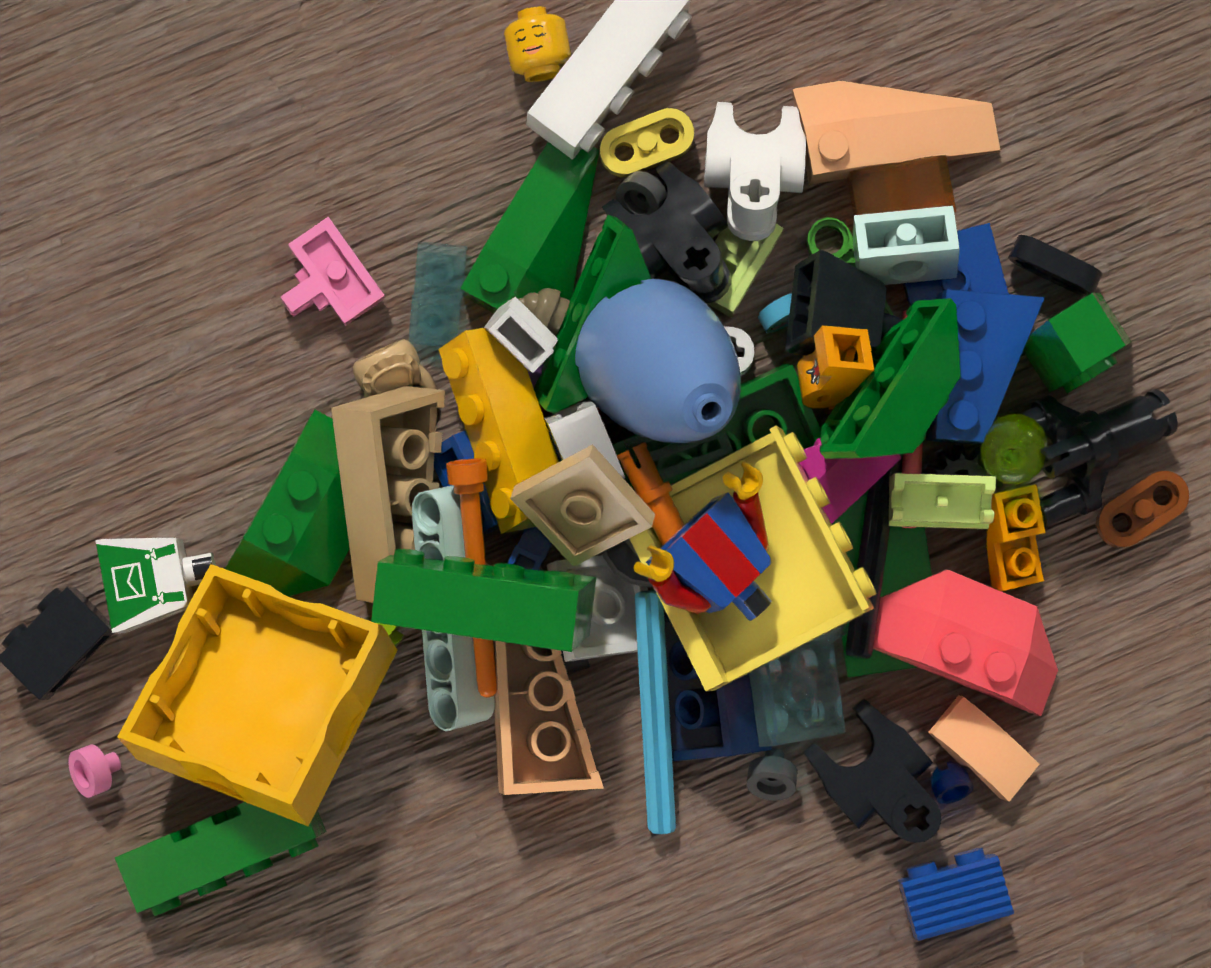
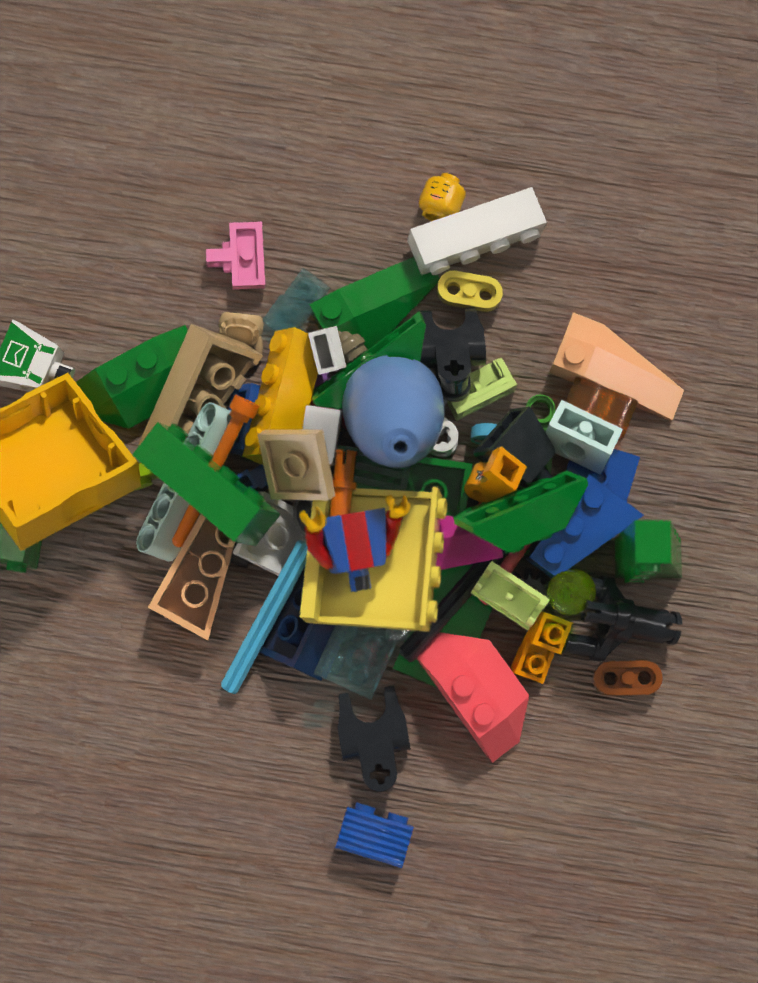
camera: 30 degrees right, 5 degrees down
(641, 193) = (448, 316): dark grey tile -> none
(754, 169) = (521, 341): white piece -> none
(772, 776) = (311, 697): dark grey tile -> none
(951, 784) = (414, 768): clear blue hinge -> none
(984, 748) = (446, 759): light nougat slope -> none
(1055, 265) = (662, 502): black beam -> none

